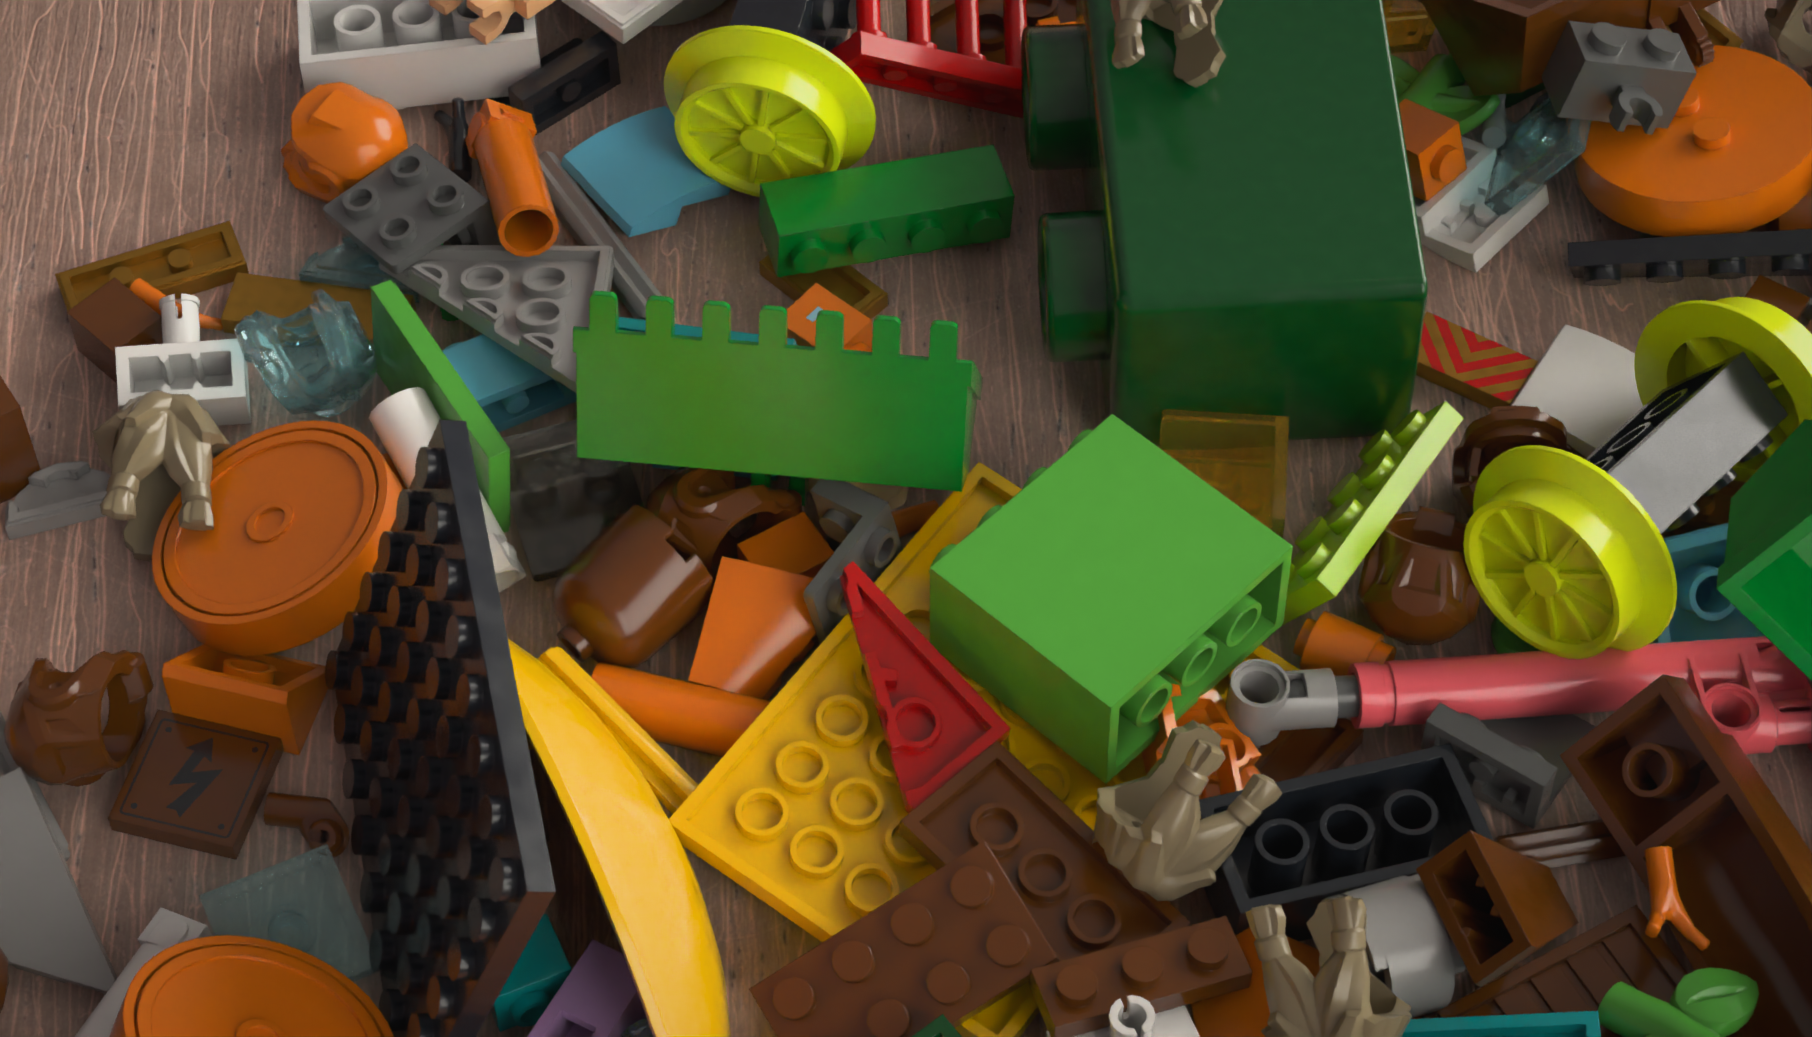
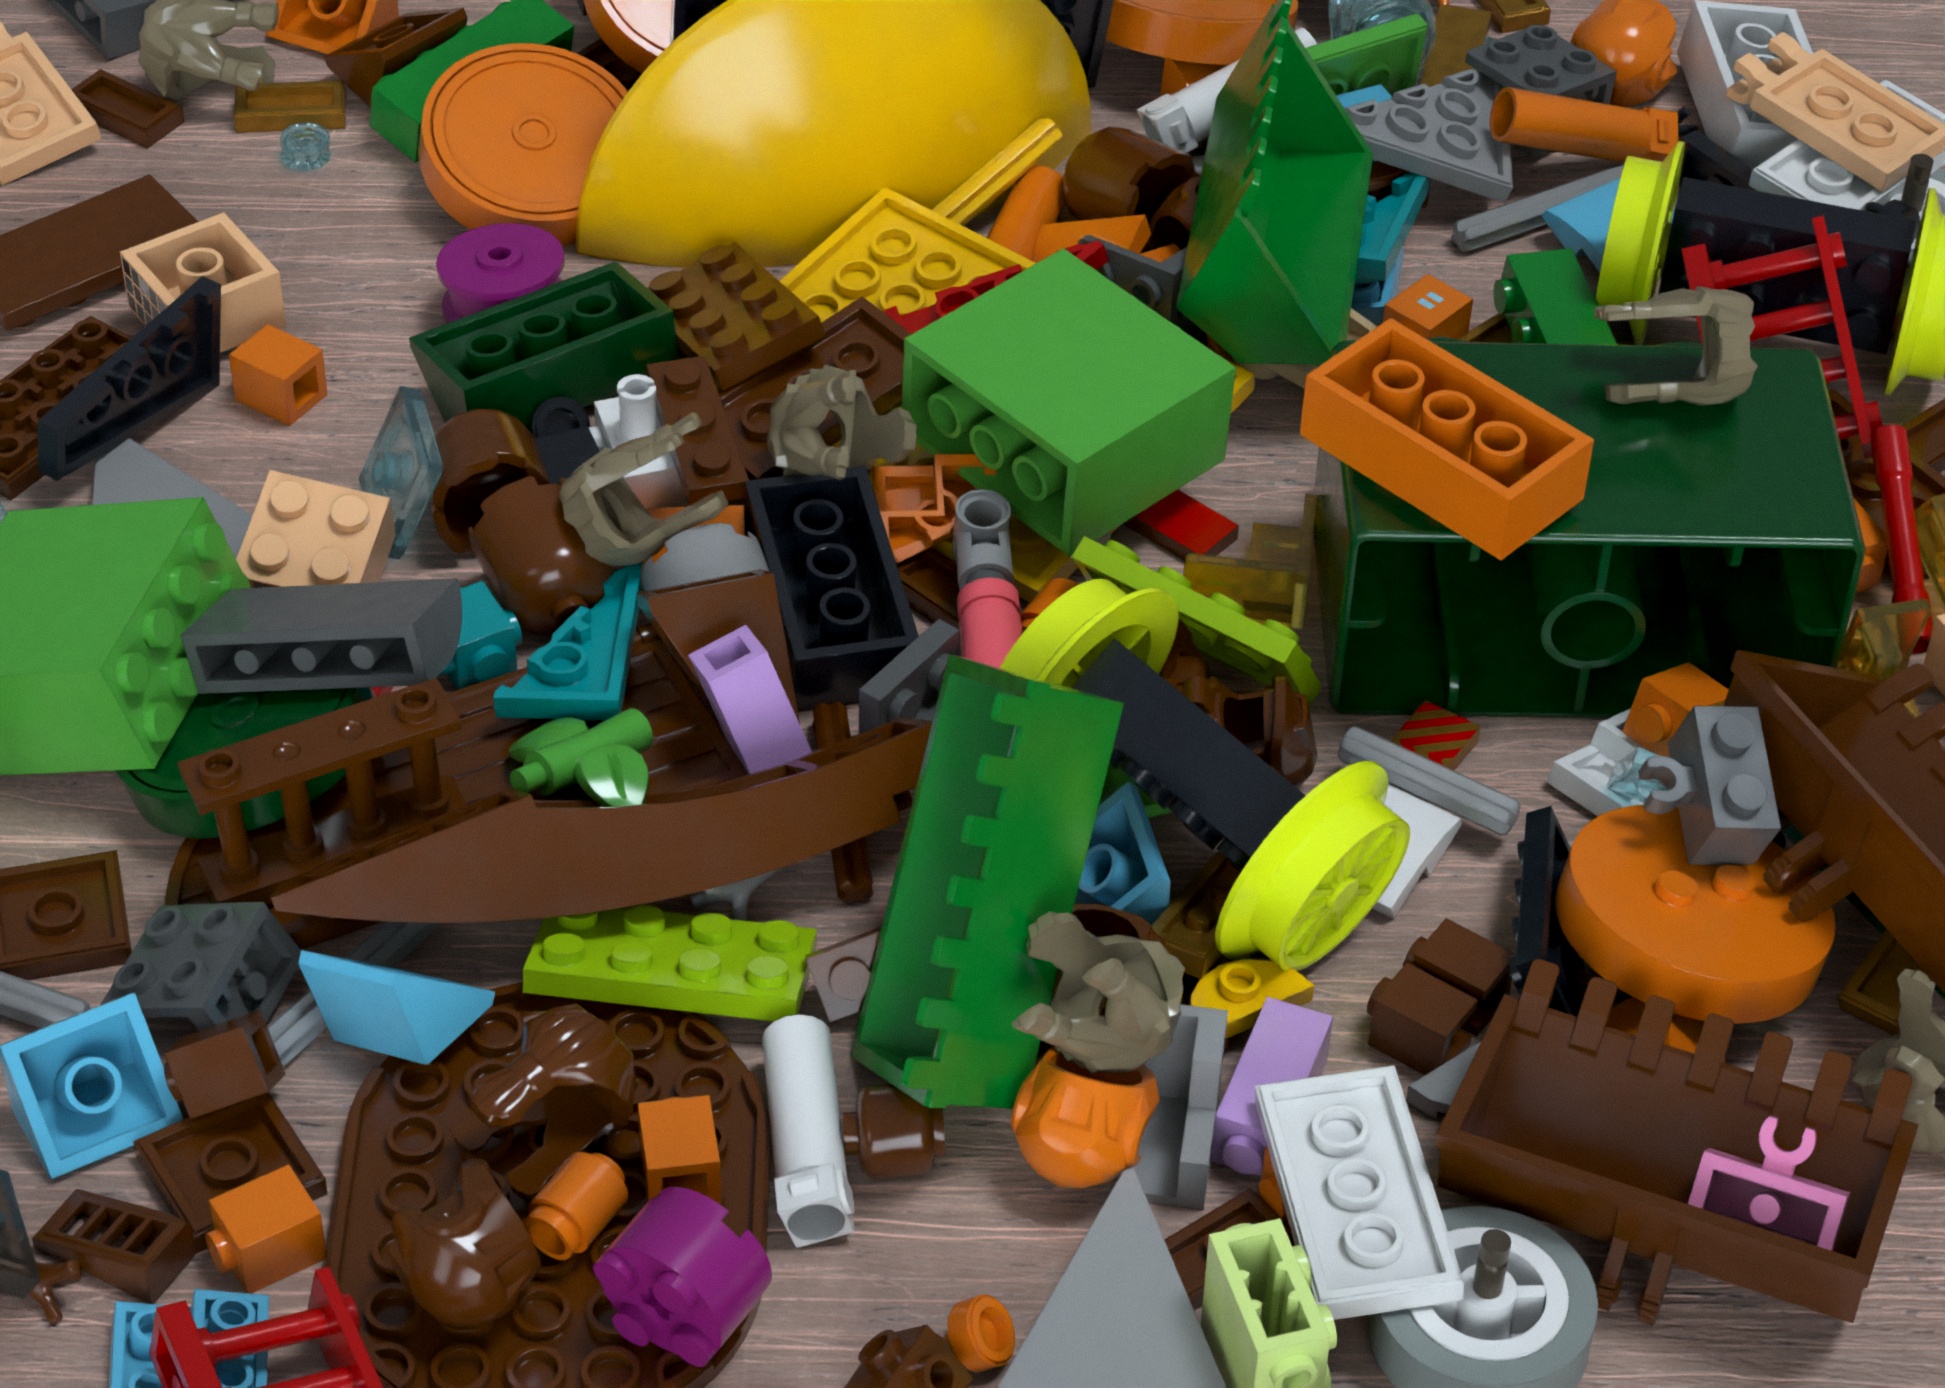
camera: 90 degrees right, 10 degrees down
(1334, 185) = (1446, 438): none -> orange brick
(1527, 342) = (1432, 781): none -> light grey axle
(1600, 874) = (749, 701): none -> lavender brick
(1665, 898) = (729, 760): orange bar -> none

